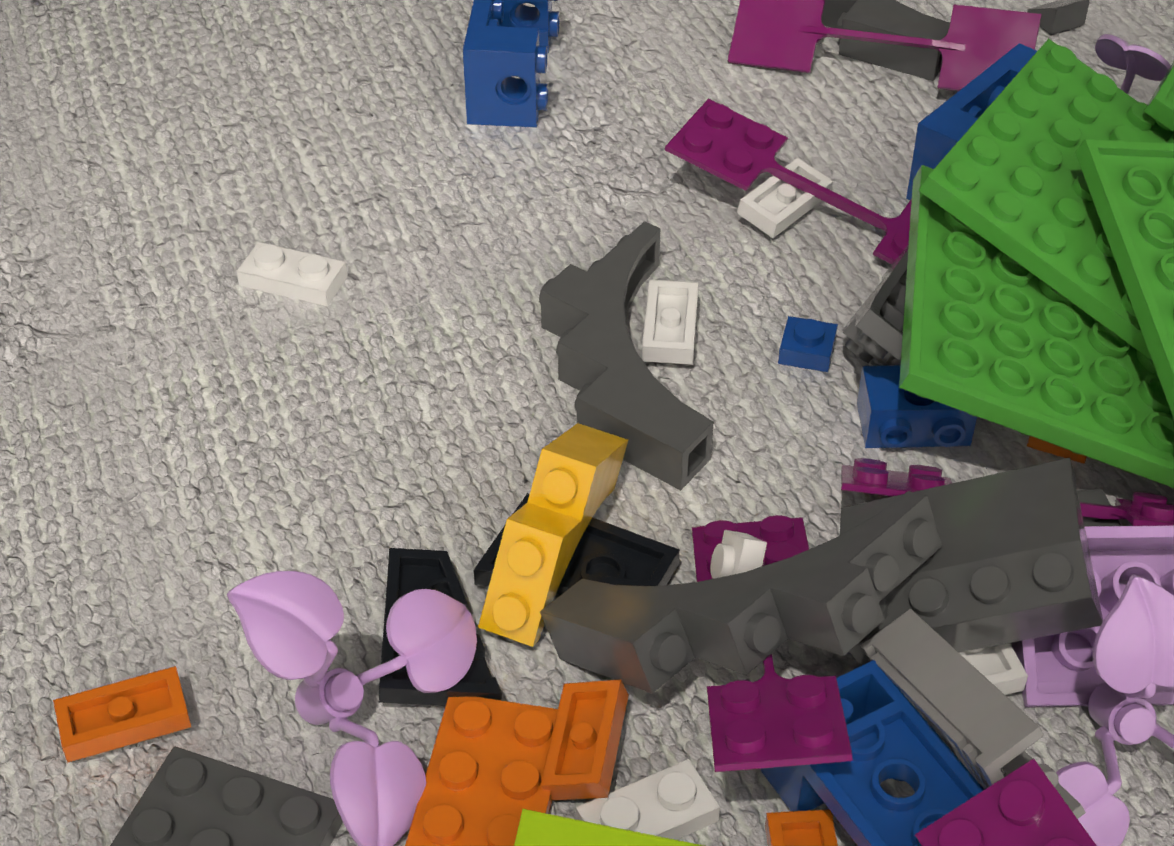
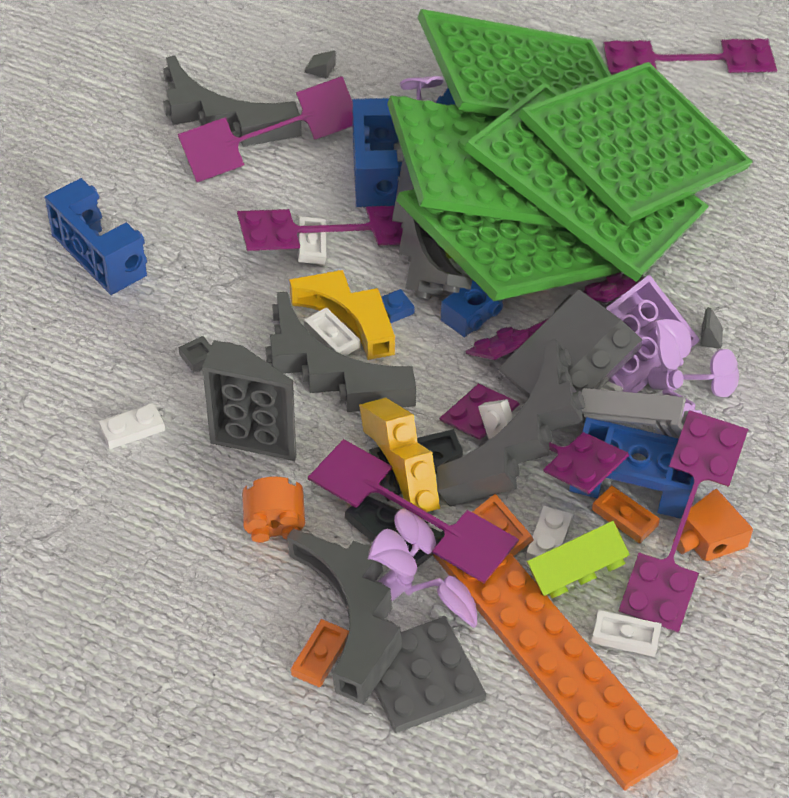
camera: 45 degrees left, 5 degrees up
(175, 738) = (371, 638): none -> dark grey arch
(295, 475) = (272, 508): none -> orange brick
(394, 296) = (248, 402): none -> dark grey slope
(469, 240) = (195, 353): none -> dark grey plate
(494, 725) = (468, 544): none -> magenta hinge
(744, 314) = (359, 311): none -> yellow arch

